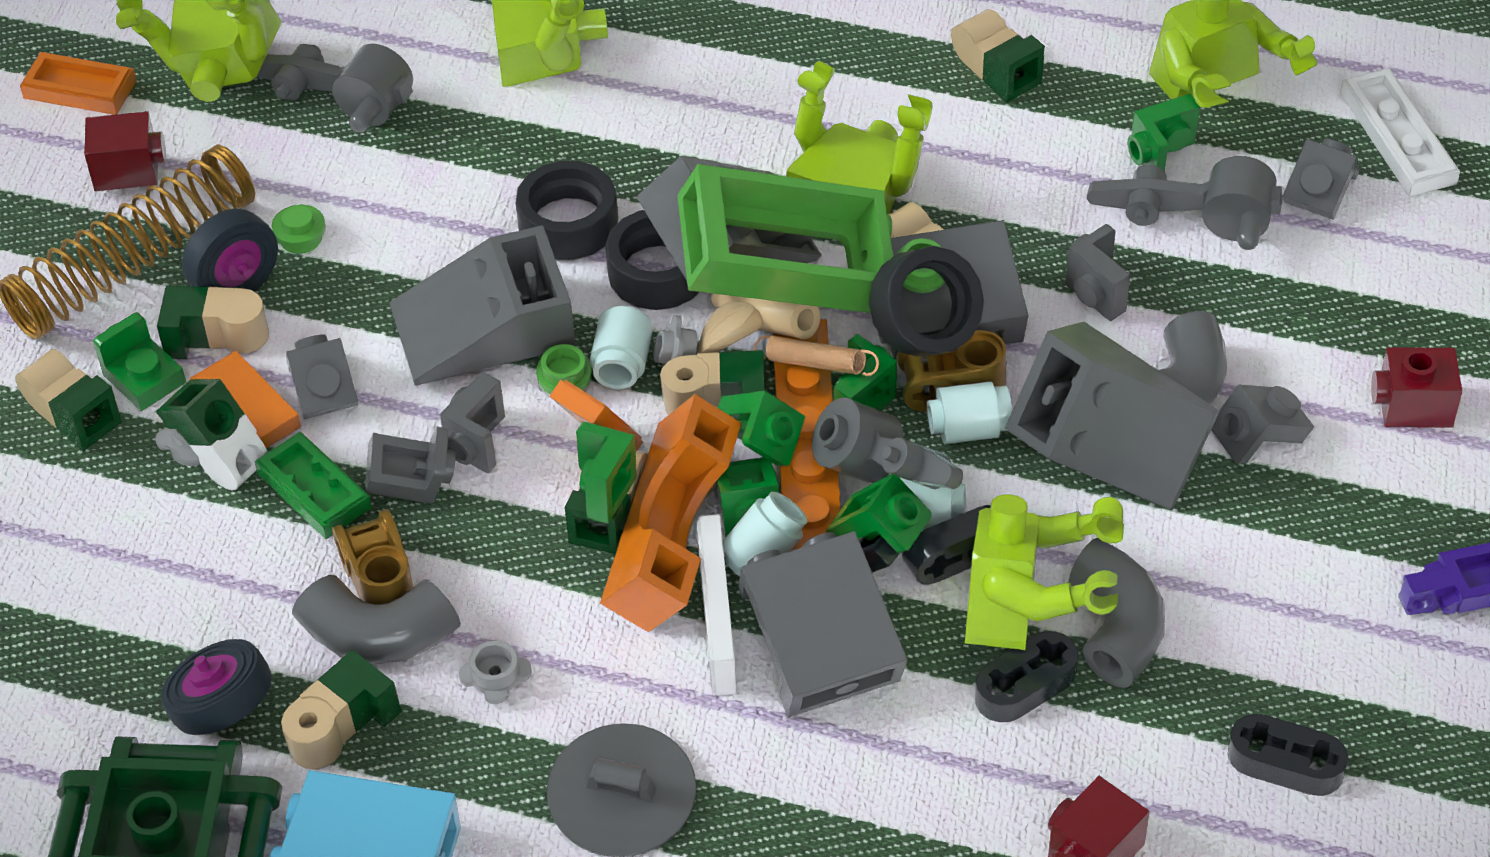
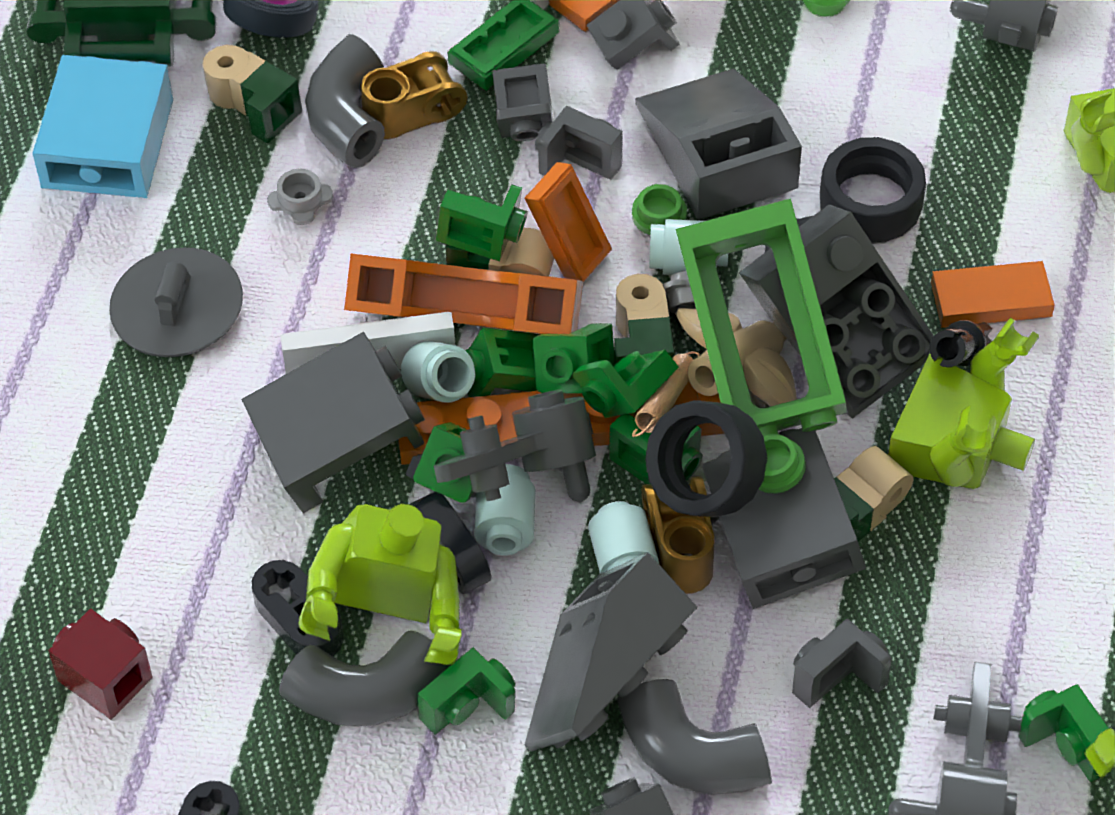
camera: 85 degrees right, 5 degrees up
(694, 131) = (993, 293): none -> orange tile
(775, 149) = (959, 343): none -> black axle
(807, 374) = (627, 384): none -> green bracket
(1140, 537) = (458, 689): none -> green bracket

